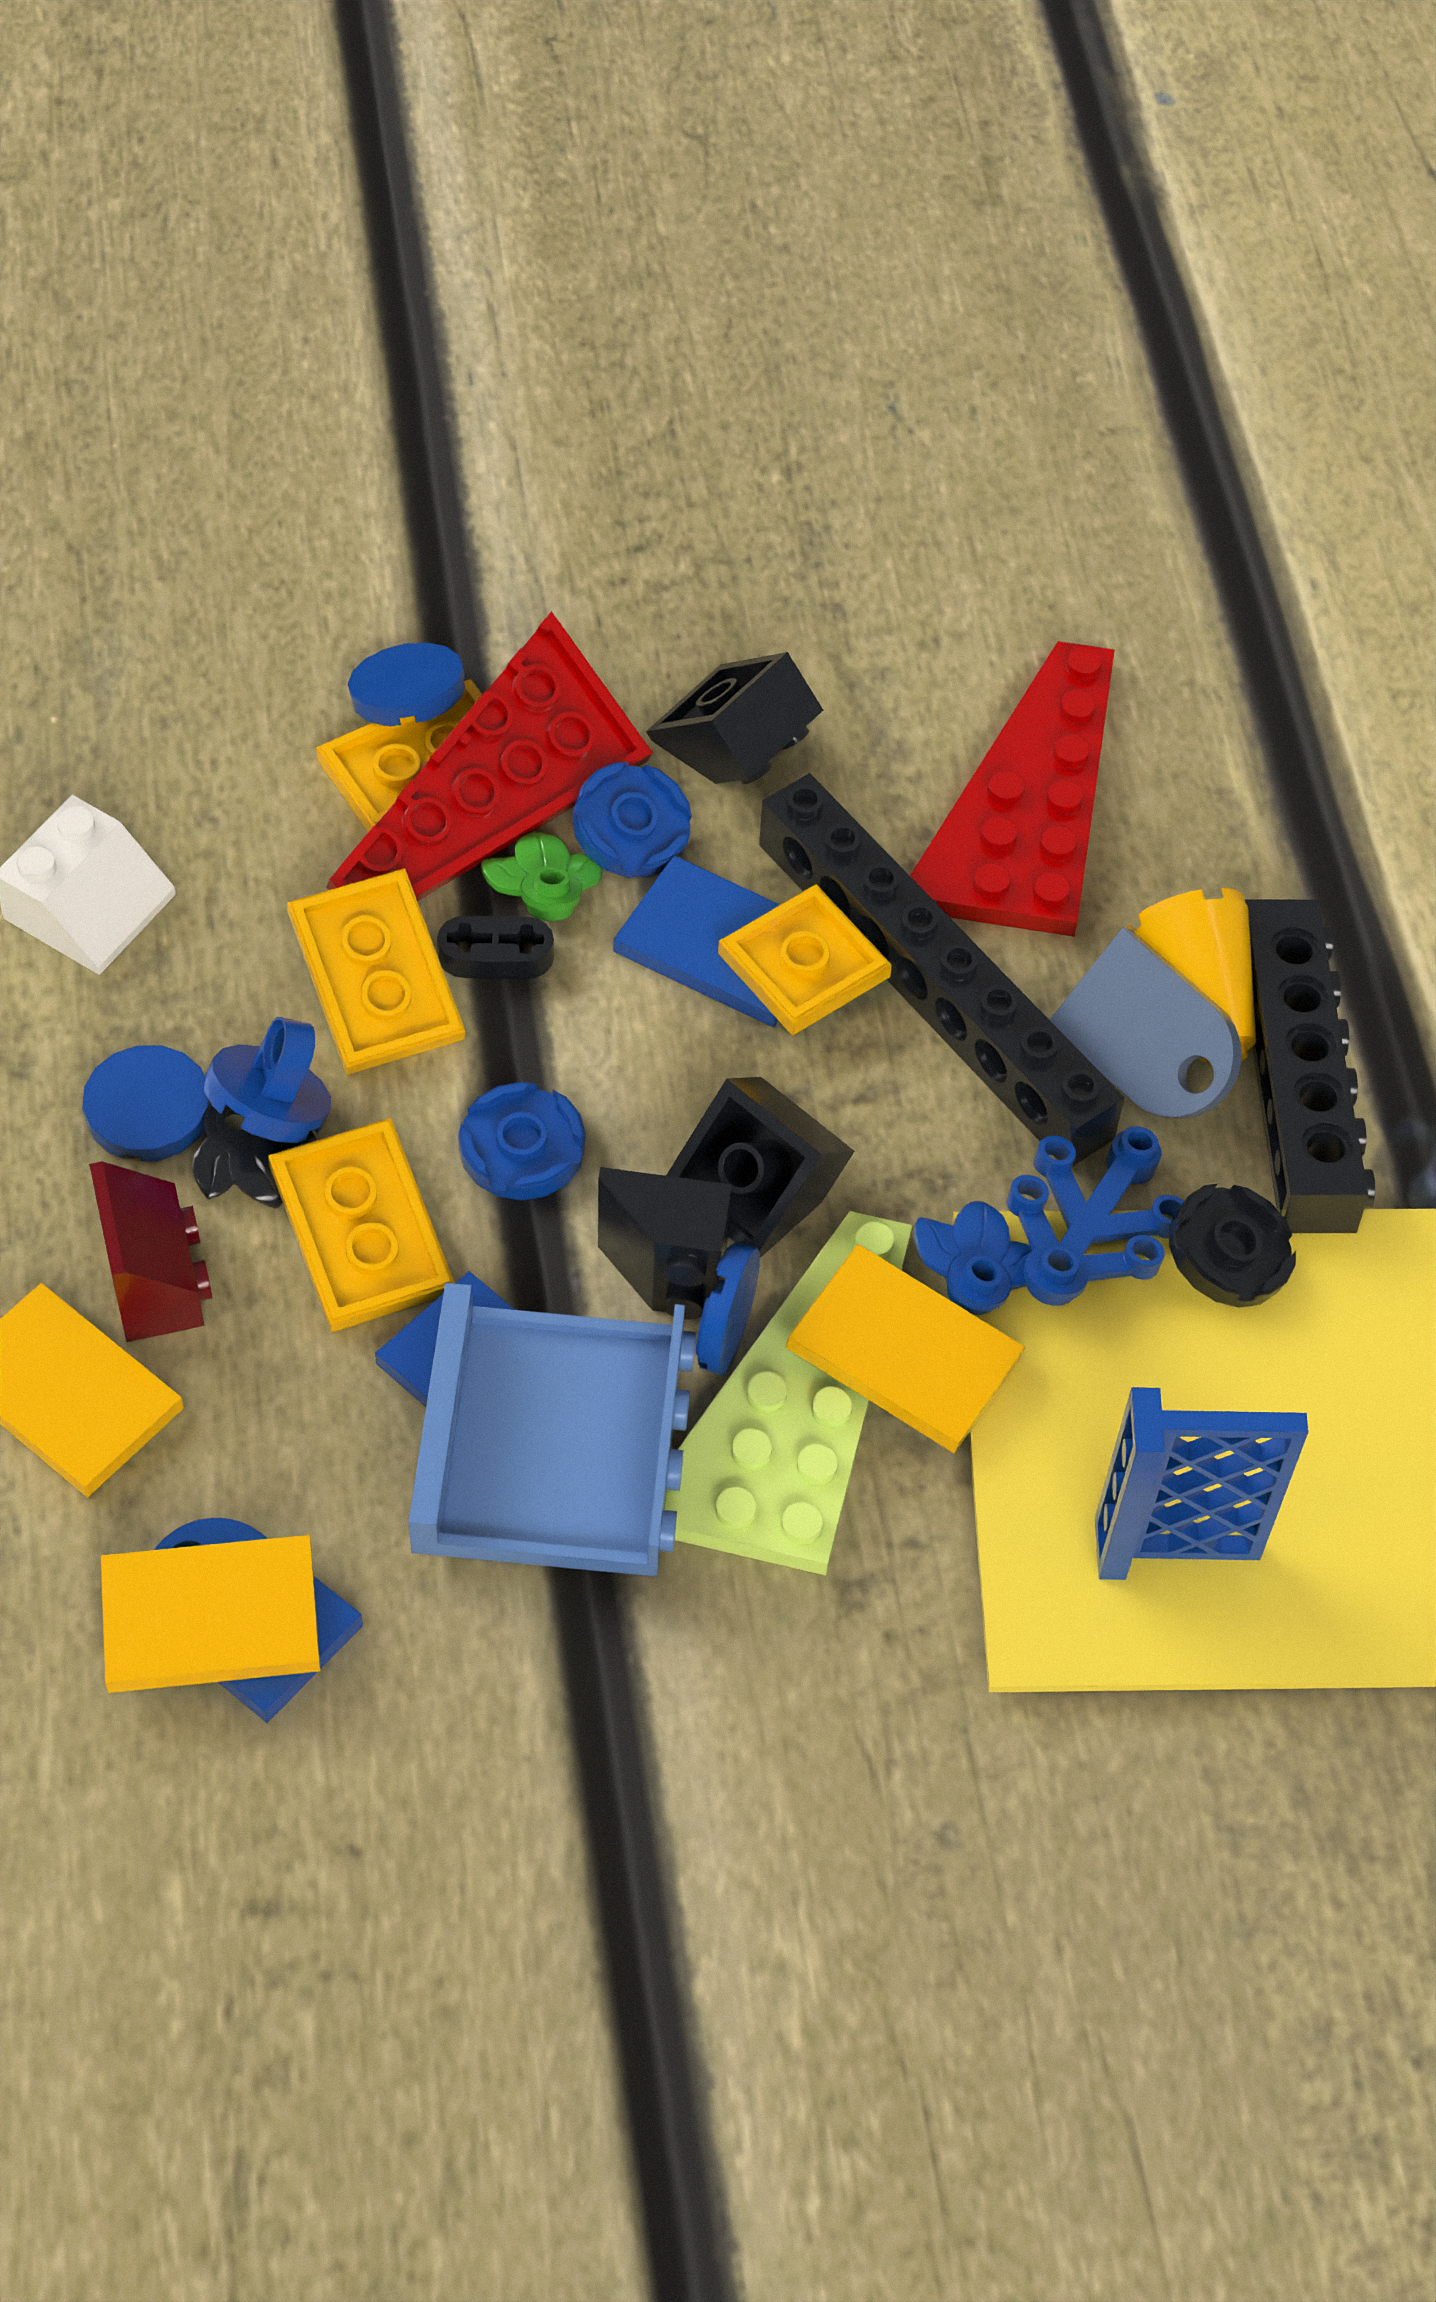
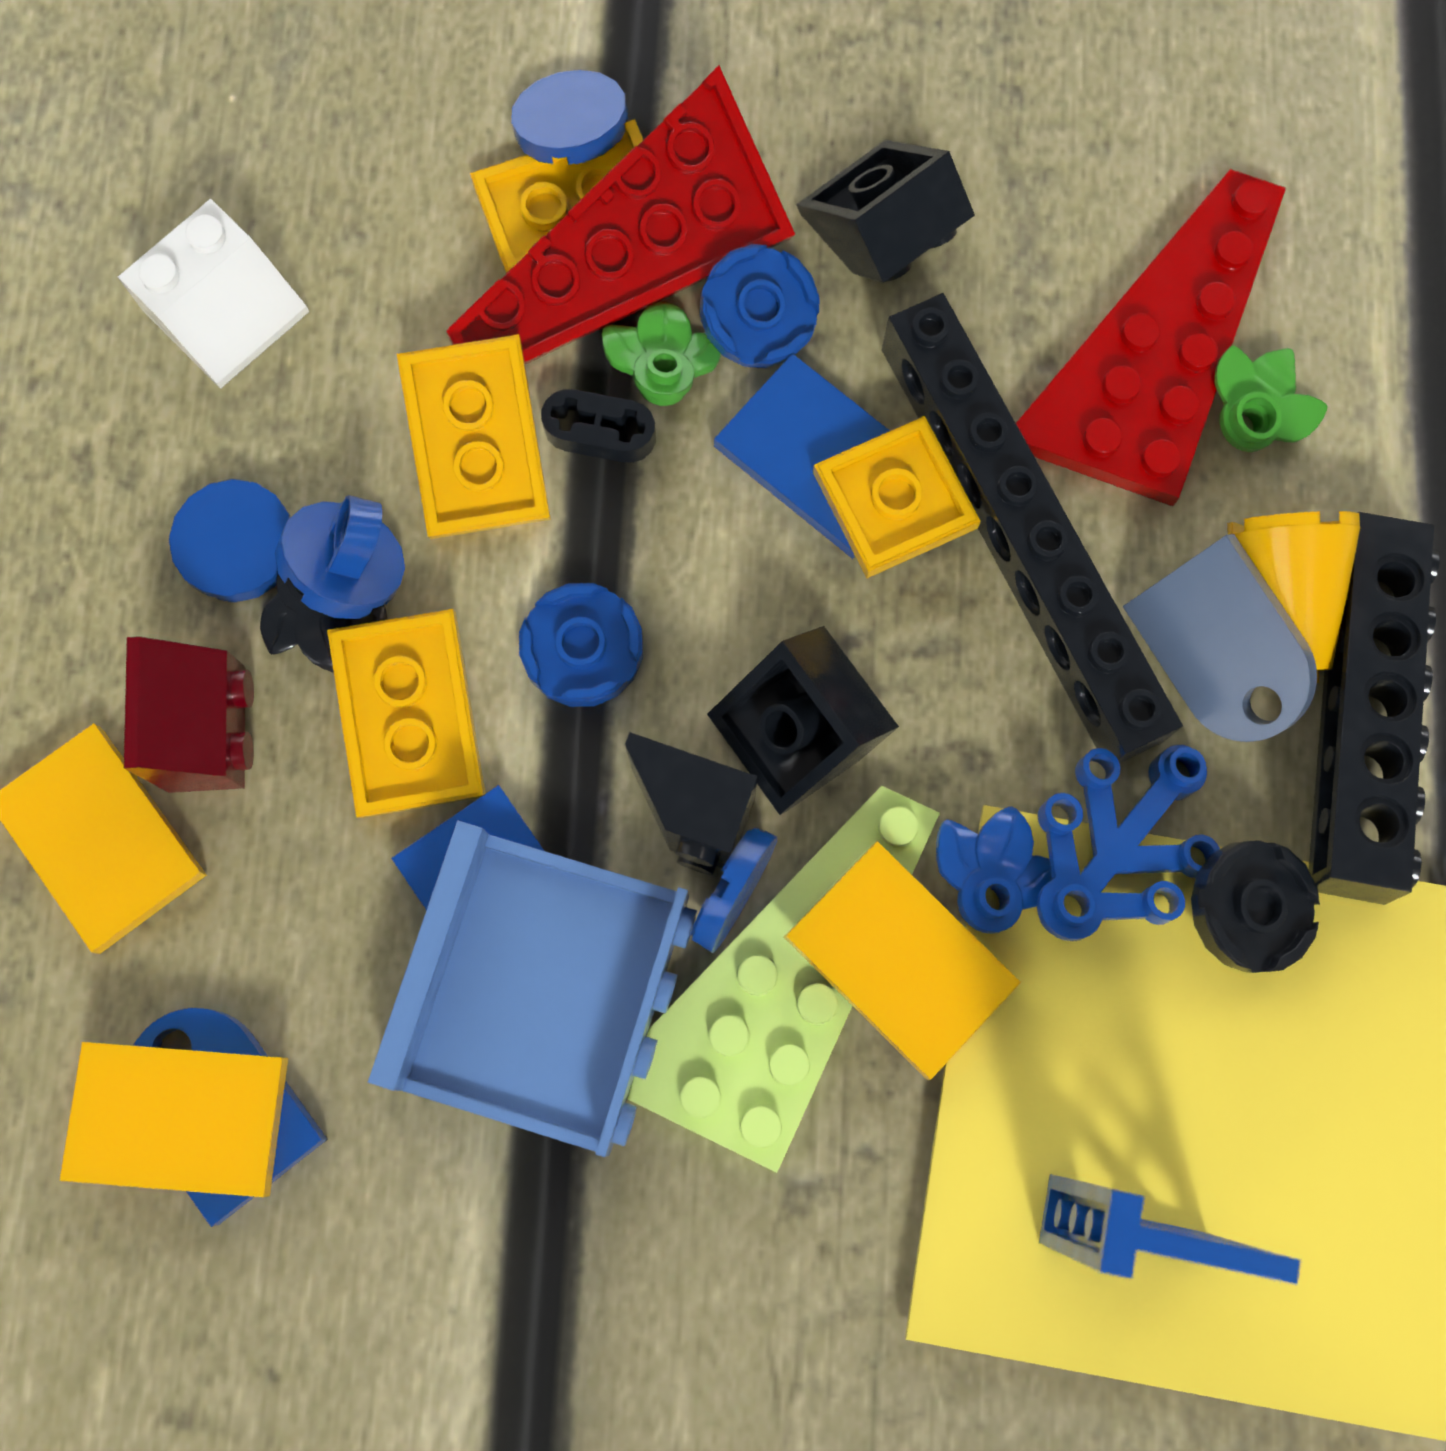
camera: 15 degrees right, 20 degrees up
(1140, 826) = (1265, 395): none -> bright green plate

